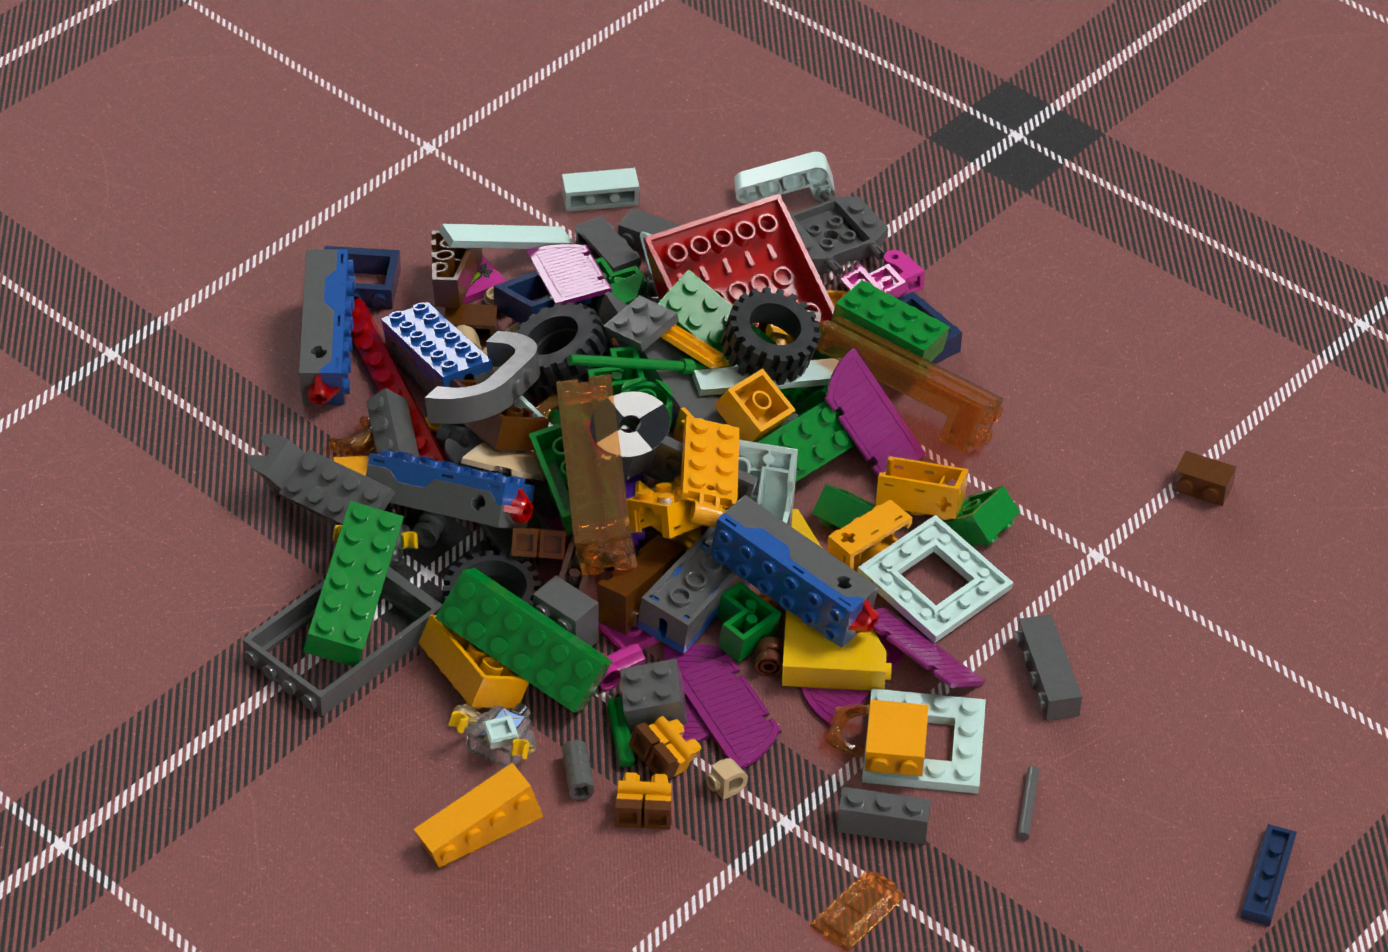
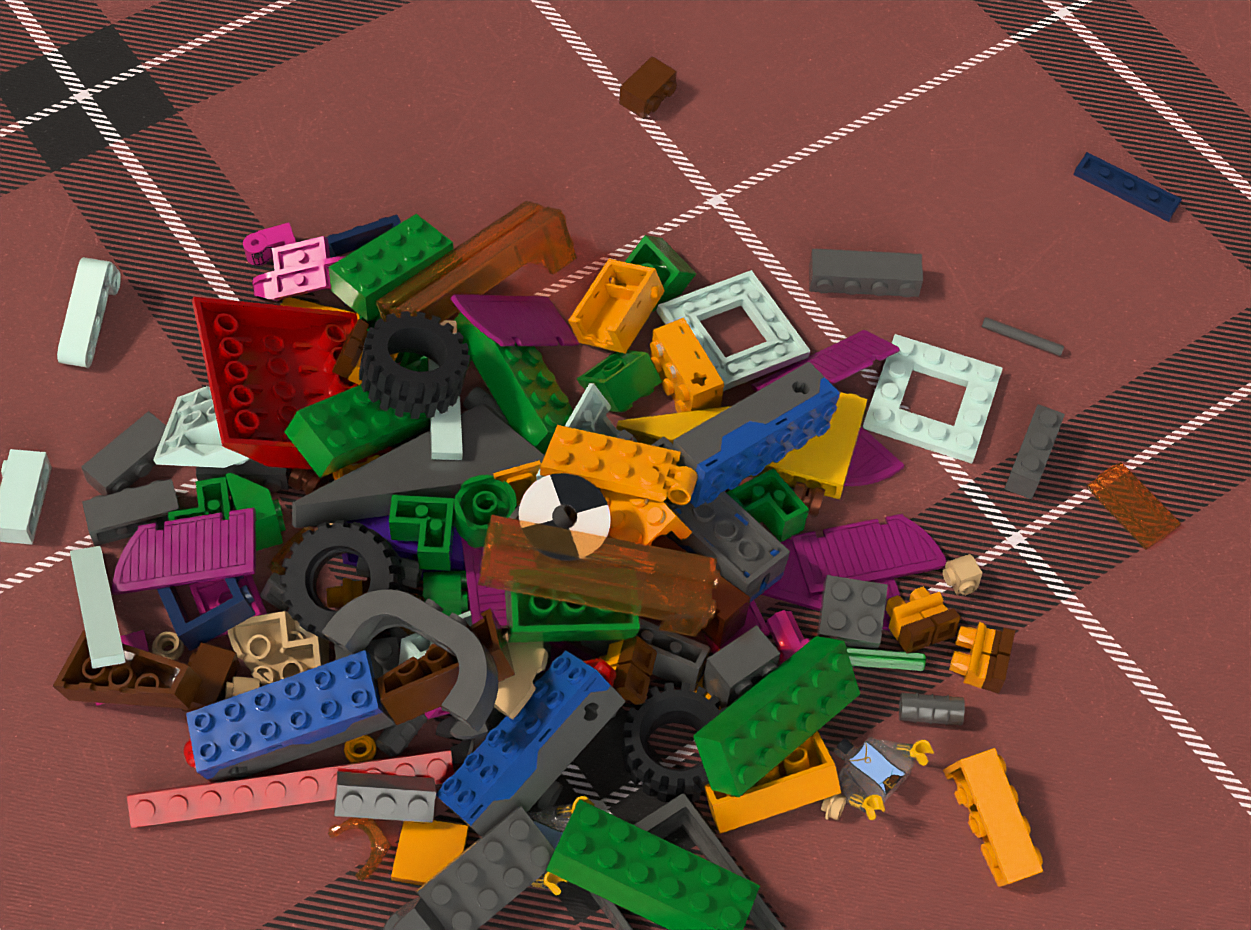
camera: 80 degrees left, 15 degrees up
(326, 327) = (190, 839): piece -> none
(378, 263) = (49, 780): dark blue window -> none
(500, 732) = (889, 768): light aqua tile -> none
(641, 323) = (364, 479): dark grey plate -> none
(684, 365) = (427, 460): green bar -> none
(695, 347) = (390, 448): light orange piece -> none
(754, 407) = (504, 410): light orange brick -> none
(824, 221) = (168, 315): dark grey piece -> none
(840, 718) = (906, 460): clear orange helmet -> none
(896, 738) = (954, 413): light orange brick -> none

